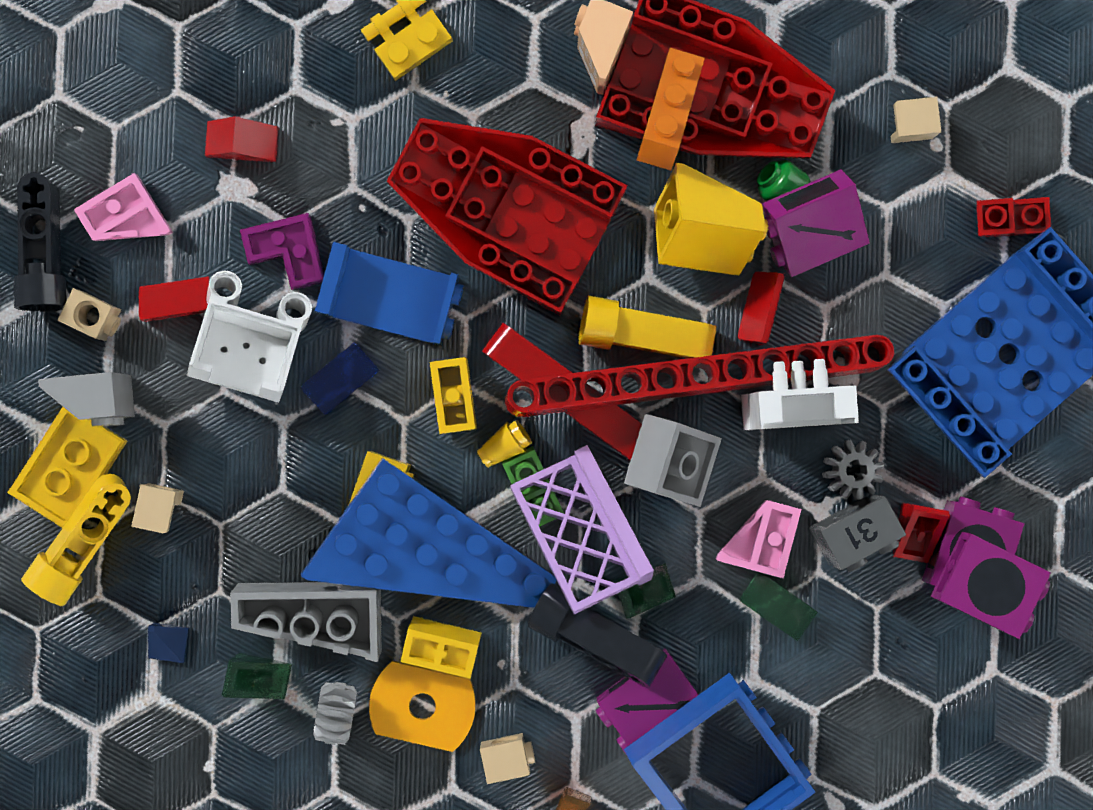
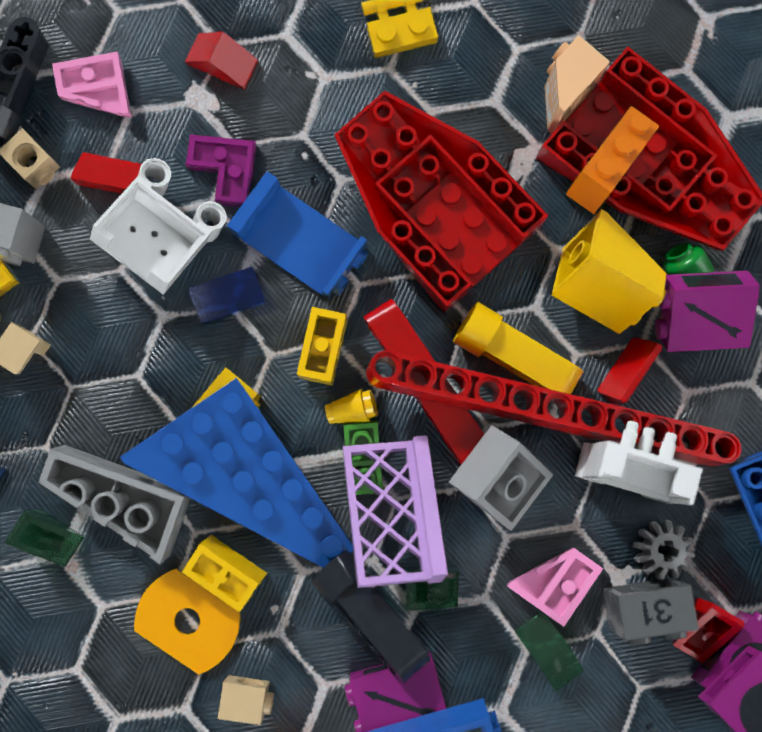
camera: 20 degrees right, 5 degrees down
(335, 713) = (103, 597): light grey gear -> none

